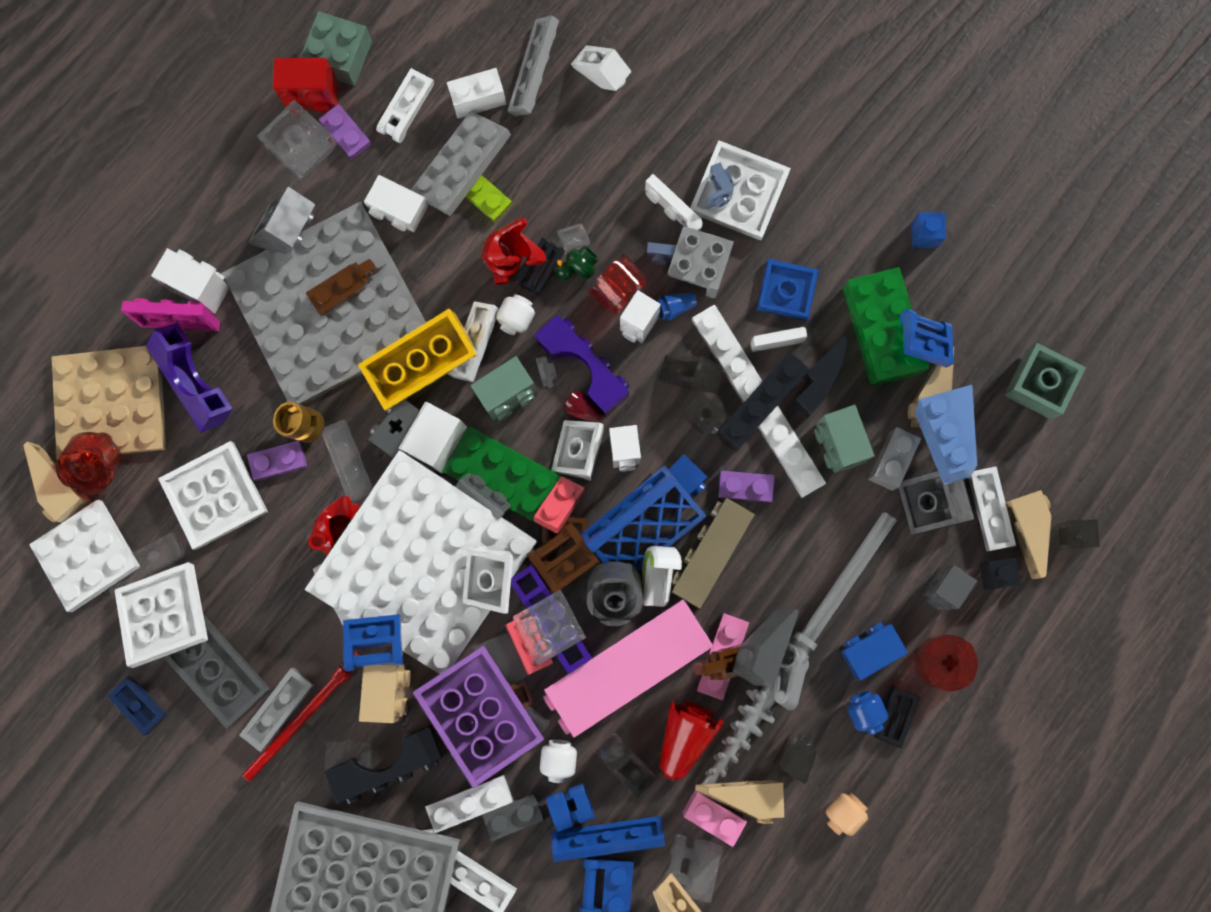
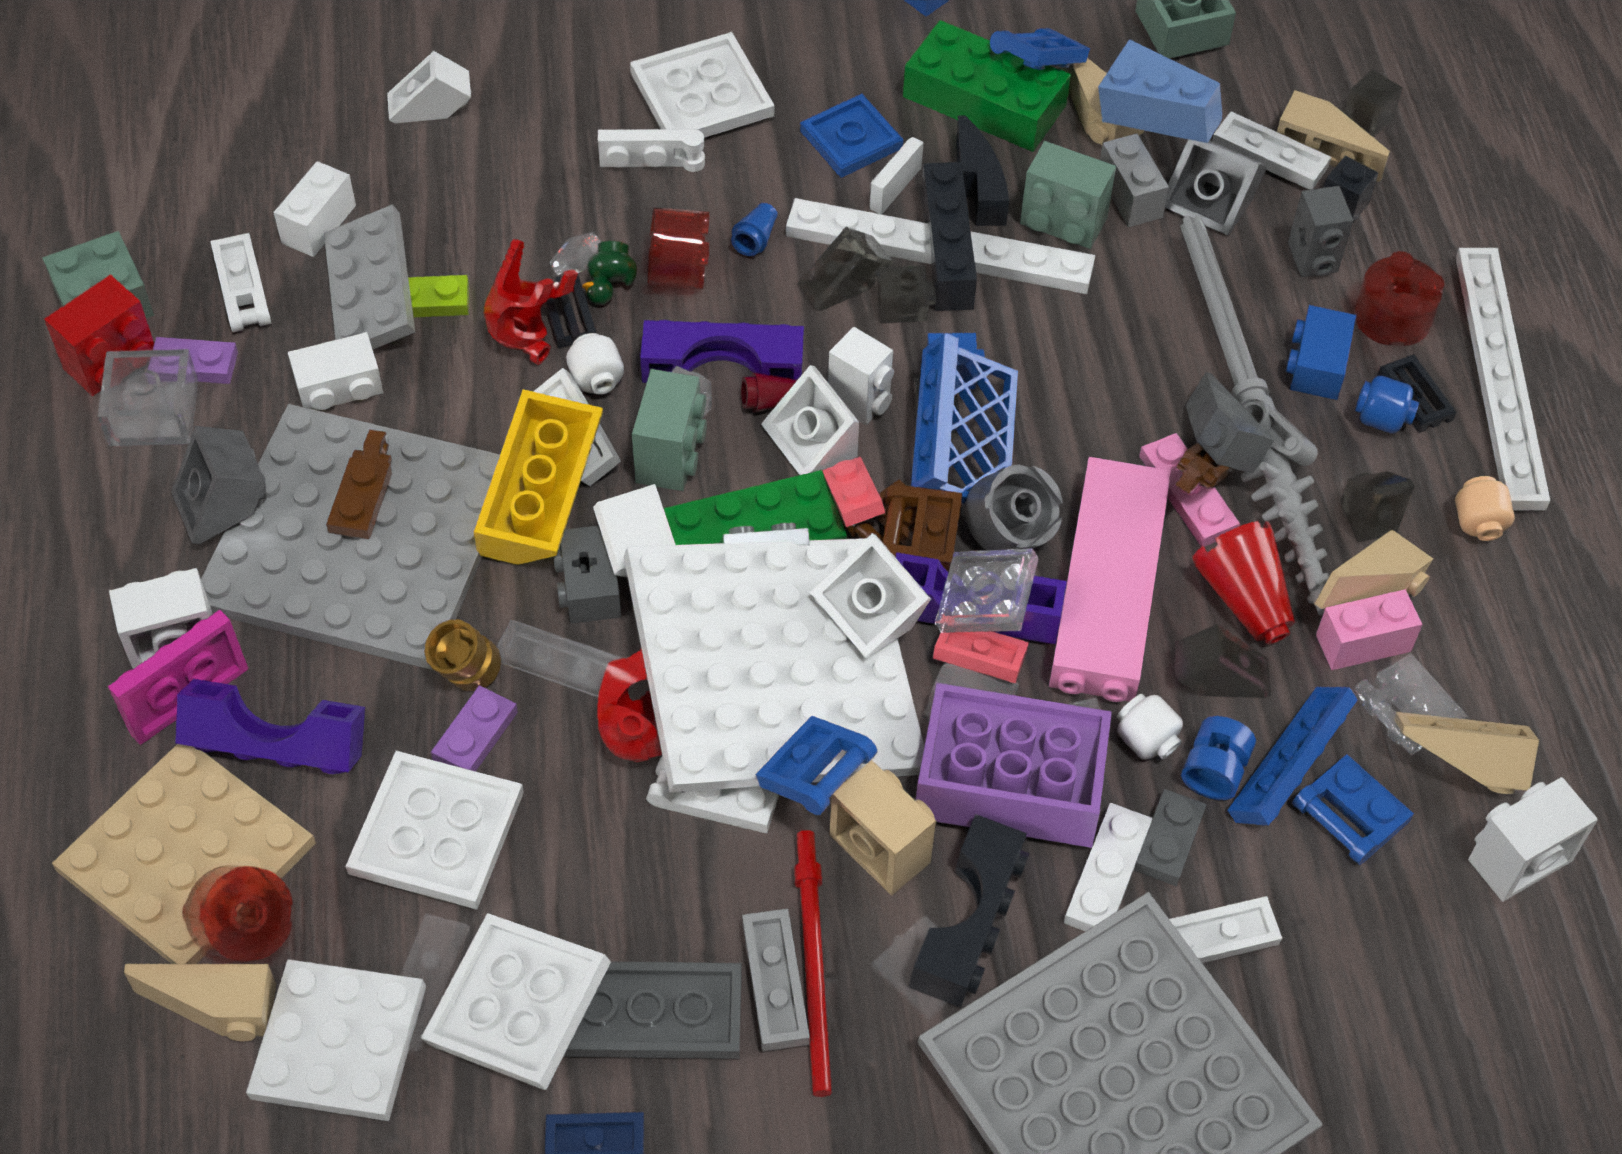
camera: 50 degrees left, 25 degrees down
(533, 66) = (352, 144): light grey plate -> none
(639, 317) = (735, 255): white brick -> none
(657, 574) = (1020, 444): white animal -> none
(660, 253) = (696, 191): sand blue bracket -> none
(700, 259) = (740, 161): light grey bracket -> none
(712, 553) = (1061, 401): dark tan brick -> none
(722, 183) = (681, 86): sand blue bracket -> none
(746, 486) = (1021, 326): medium lavender plate -> none
(949, 752) = (1502, 378): none -> white plate

